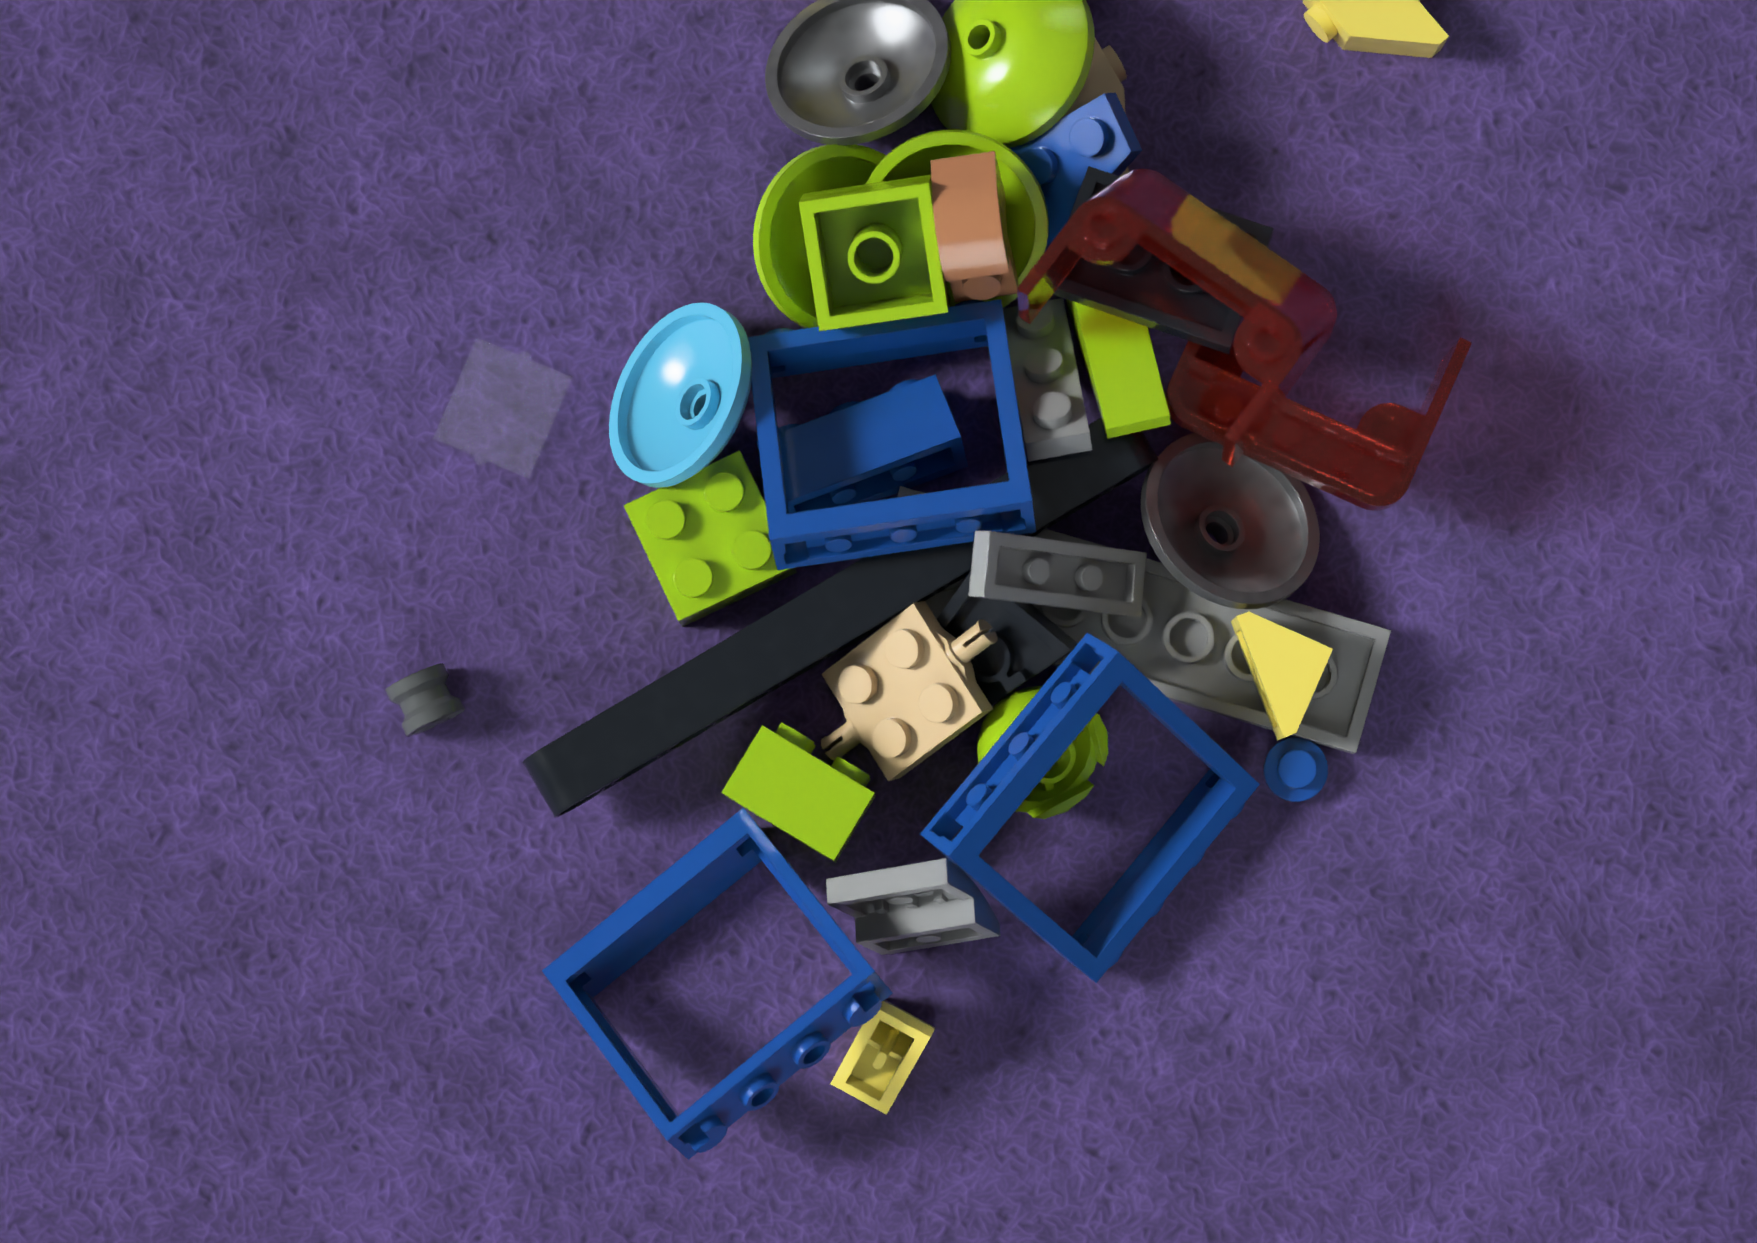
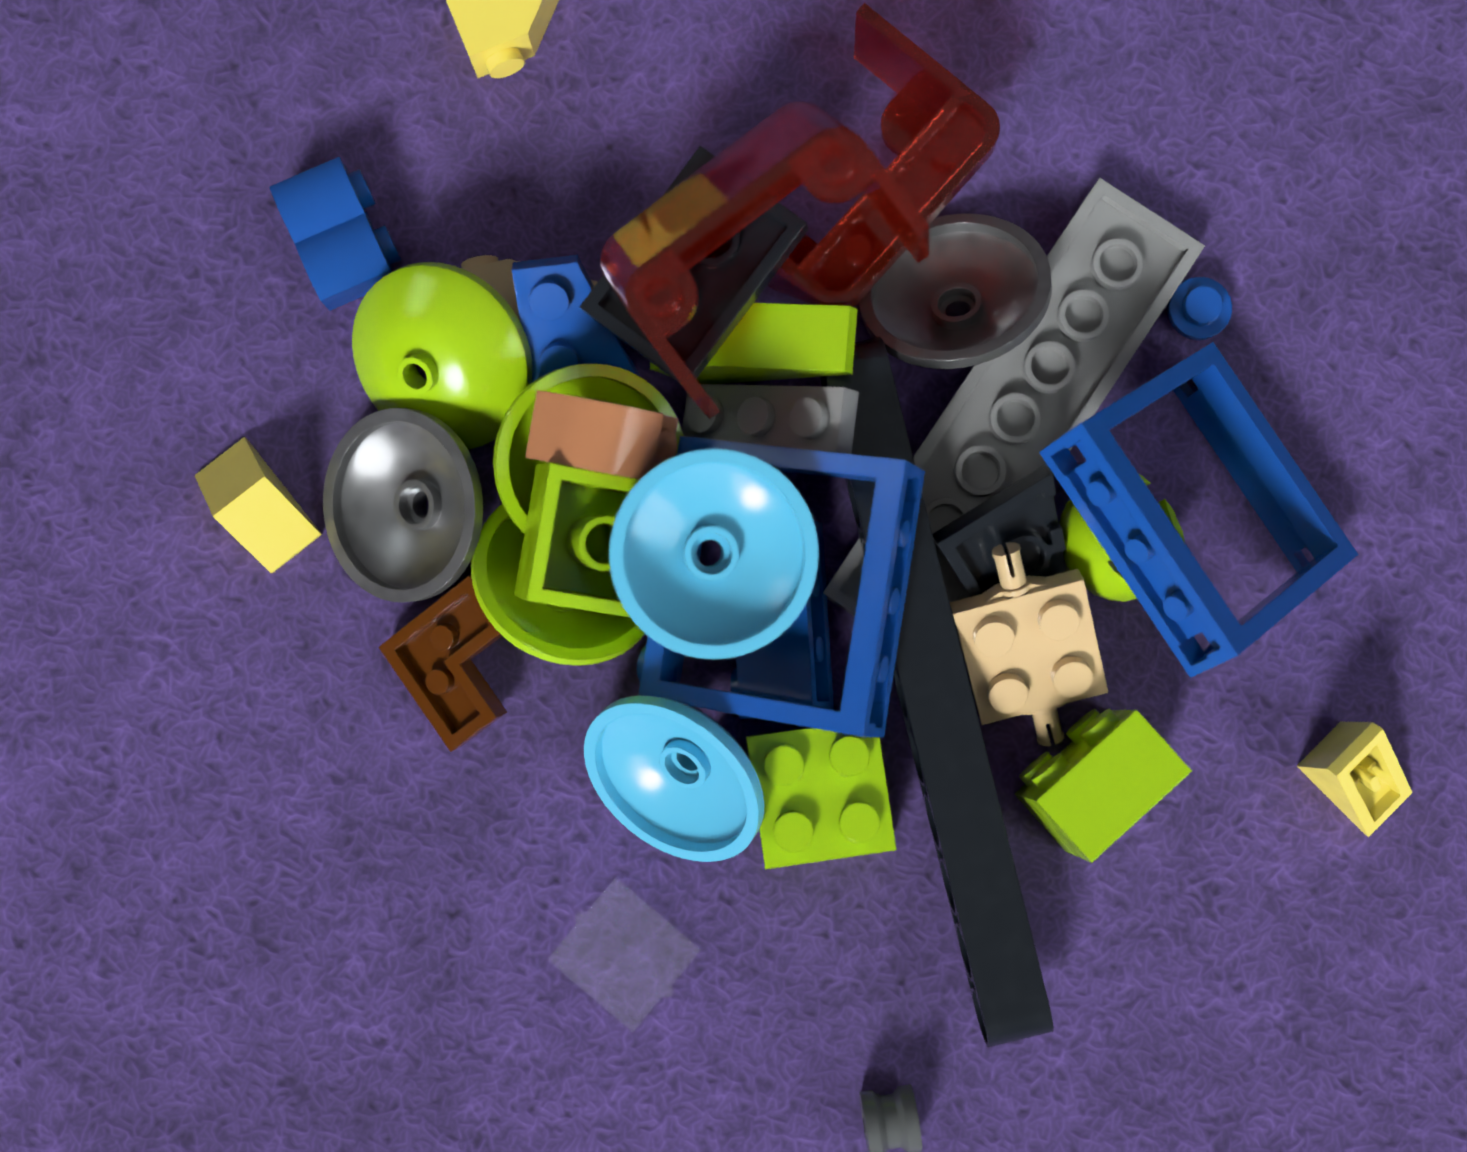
camera: 75 degrees left, 0 degrees up
(657, 914) = (1173, 978): blue window -> none
(720, 144) = (437, 665): none -> reddish brown plate
(845, 343) = (763, 563): none -> medium azure dish
(913, 906) = (1245, 709): light grey slope -> none
(1057, 573) = (967, 467): light grey plate -> none
(1283, 668) = (1119, 283): light yellow slope -> none

